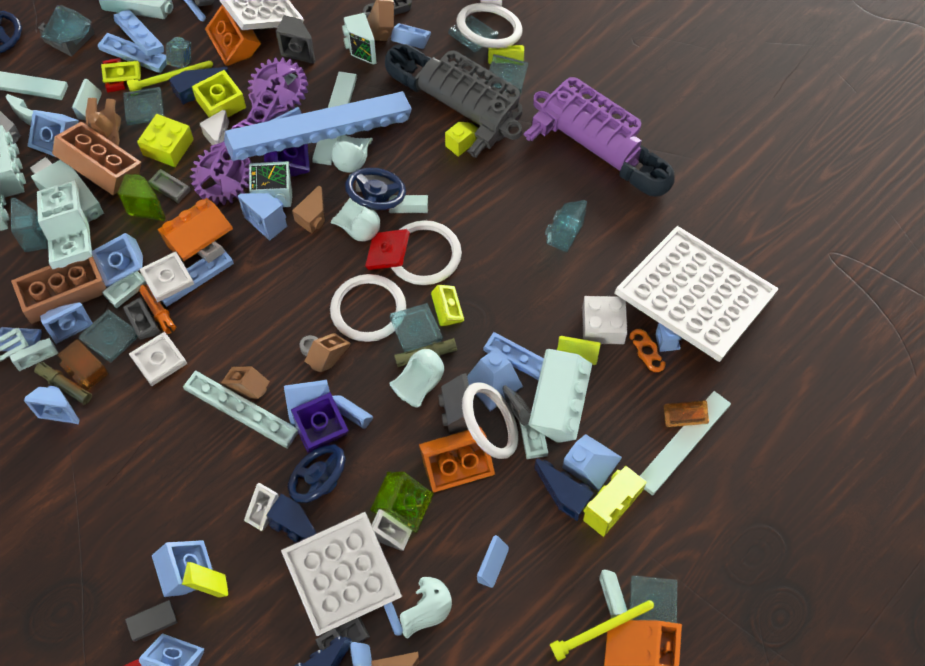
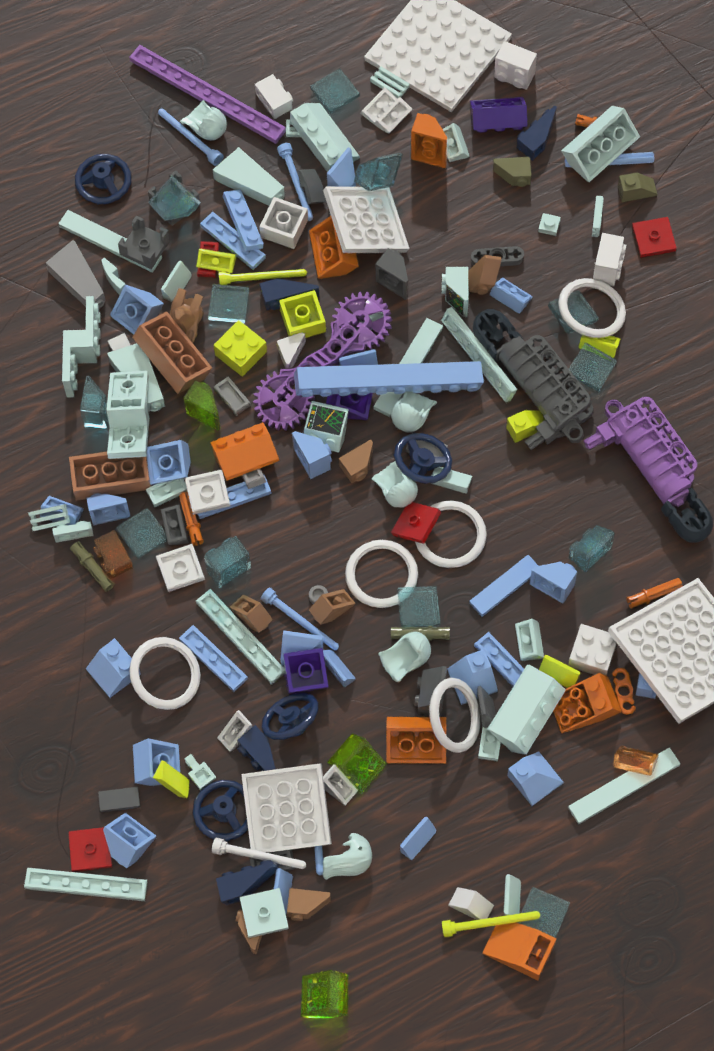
camera: 20 degrees right, 5 degrees up
(45, 75) = (144, 244): none -> dark grey panel
(51, 405) = (78, 584): light blue slope -> none
(110, 480) = (111, 668): none -> light blue slope
(167, 502) = (141, 691): none -> white wedge
(178, 21) = (283, 222): none -> white brick
(178, 52) = (276, 255): clear light blue brick -> none
(205, 337) = (227, 561): none -> clear light blue brick
(217, 439) = (213, 658): none -> light blue plate
(235, 565) = (200, 773): none -> light aqua plate
(261, 361) = (270, 597): none -> light blue piece
(270, 596) = (222, 809): none -> dark blue piece
(279, 638) = (221, 847): none -> white piece
(391, 84) = (478, 353): none -> light aqua tile
(447, 305) = (454, 592): neon yellow slope -> none
(494, 285) = (503, 586): none -> light blue tile
(536, 329) = (529, 640): none -> light aqua slope
(541, 263) = (554, 579): none -> light blue slope
(566, 493) = (502, 800): dark blue slope -> none
(573, 615) = (471, 903): none -> white slope
(613, 500) = (540, 818): neon yellow wedge -> none
(616, 373) = (586, 703): none -> orange slope
(634, 256) = (646, 596): none -> orange axle

